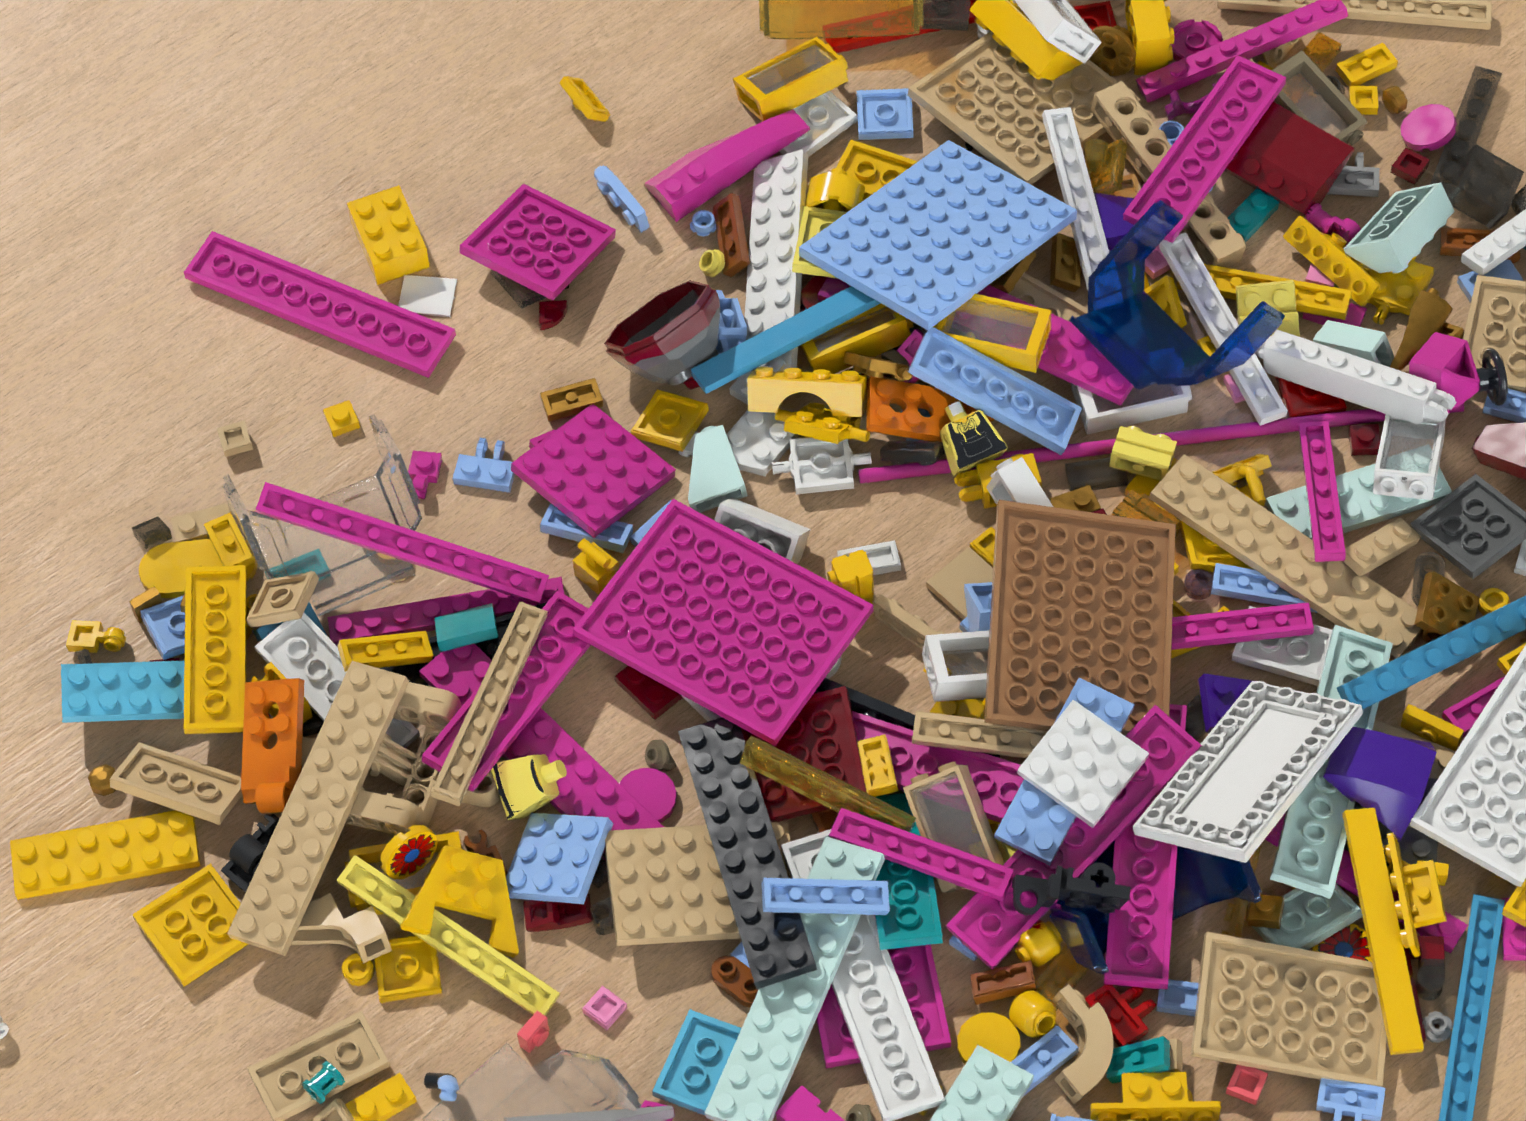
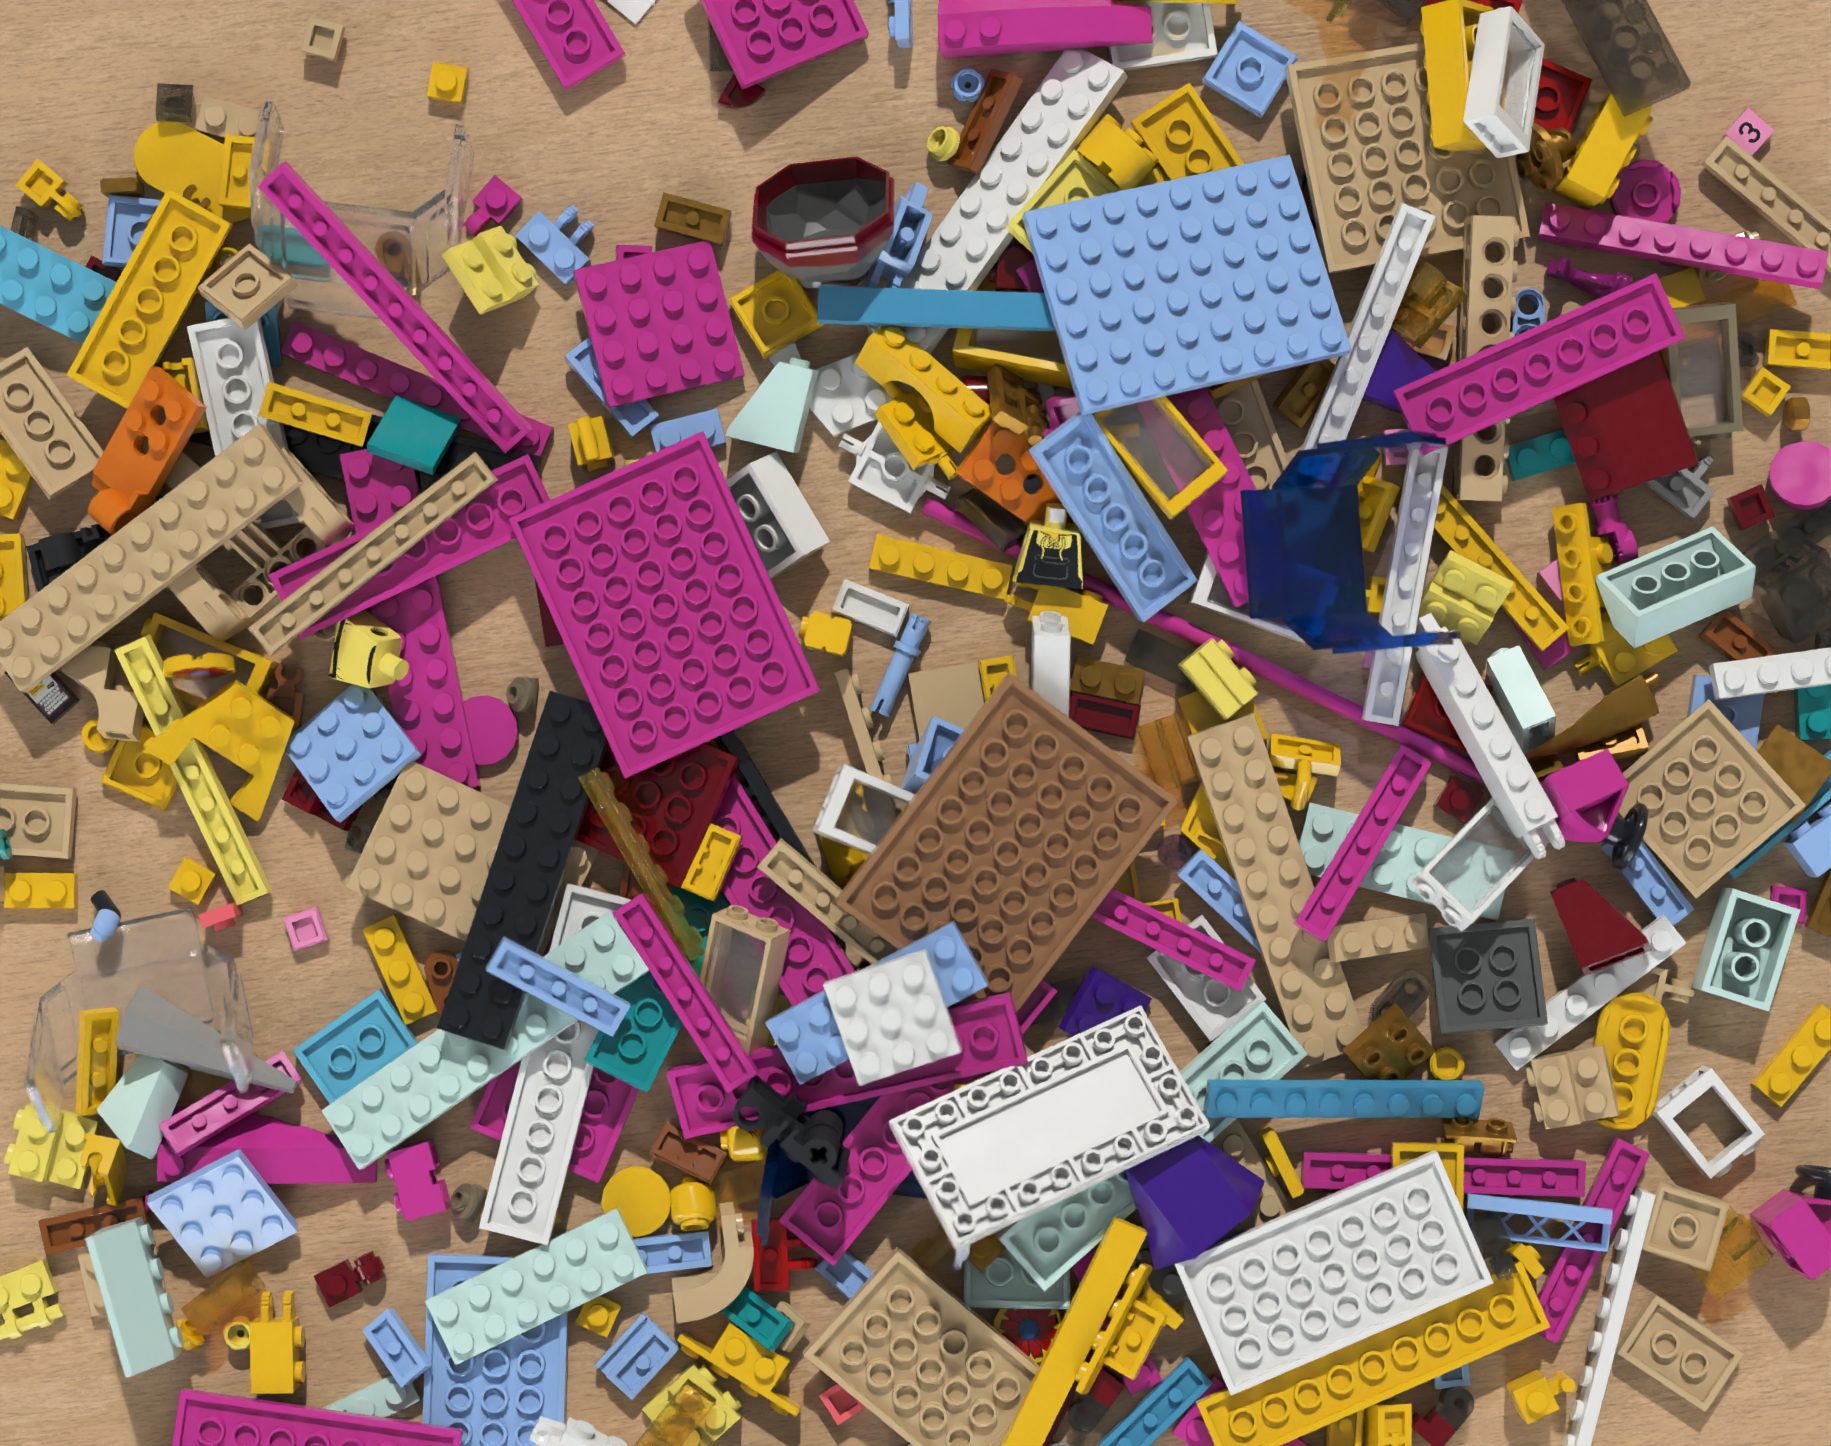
camera: 25 degrees right, 30 degrees up
(298, 964) = (51, 697): none -> tile
(452, 498) = (491, 270): none -> light yellow plate
(495, 1026) = (192, 880): none -> yellow plate
(695, 991) = (400, 969): none -> yellow plate
(899, 507) = (940, 567): none -> yellow plate
(914, 569) = (900, 664): none -> light blue pin

